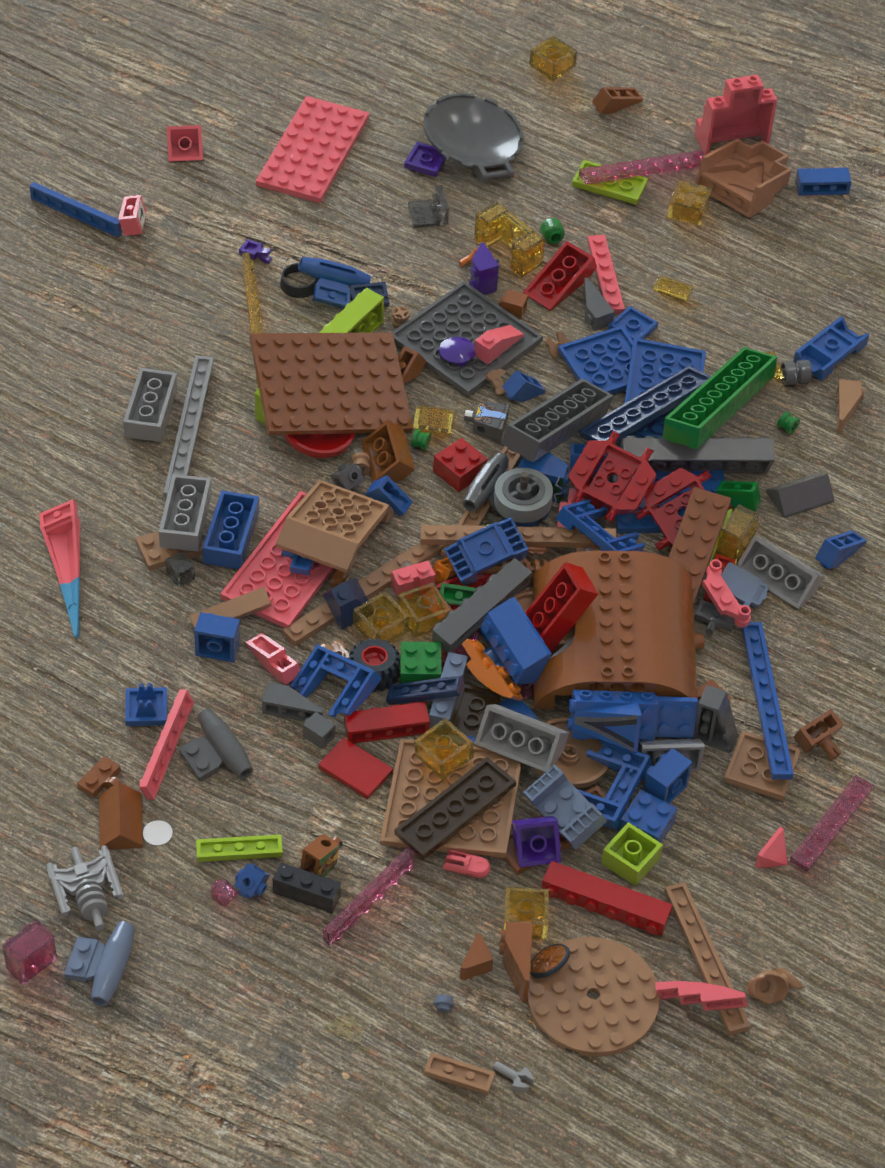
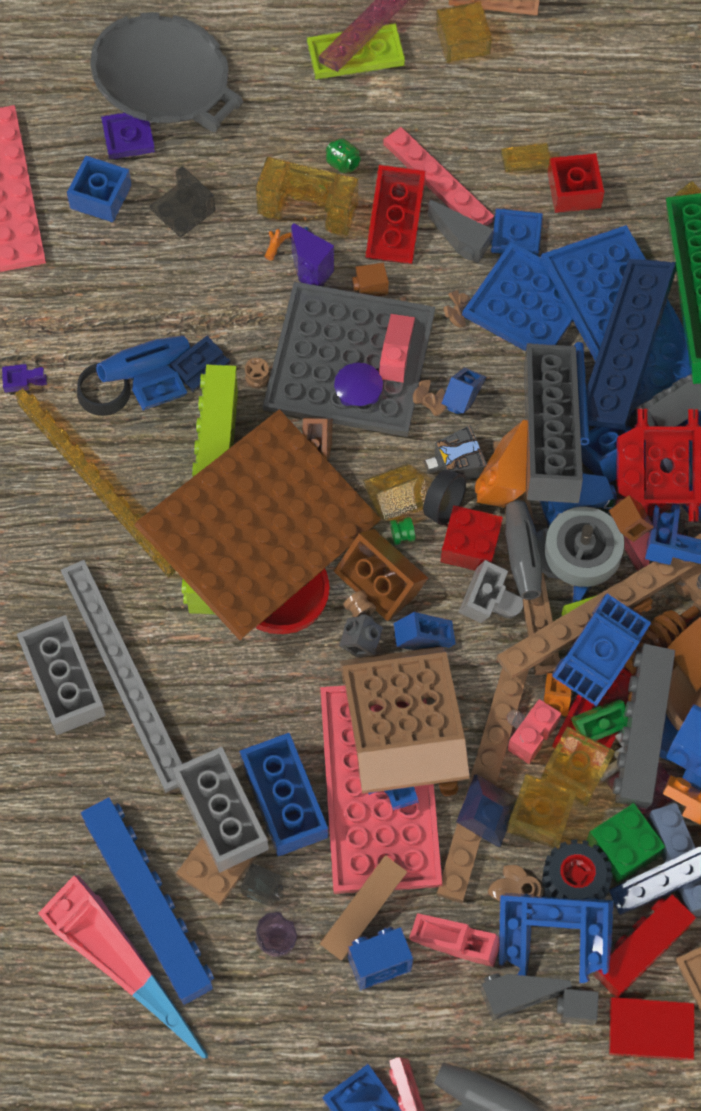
camera: 30 degrees left, 15 degrees up
(106, 541) = (146, 900): none -> blue brick
(167, 595) = (275, 935): none -> clear purple hair
(382, 176) = (99, 188): none -> blue brick
(445, 495) = (489, 594): none -> light grey brick
(471, 438) = (454, 485): none -> black tyre
(495, 431) = (505, 472): none -> orange slope
(563, 491) = (631, 518): none -> dark orange brick
(593, 417) = (582, 395): none -> blue piece
(692, 314) = (575, 183): none -> red brick

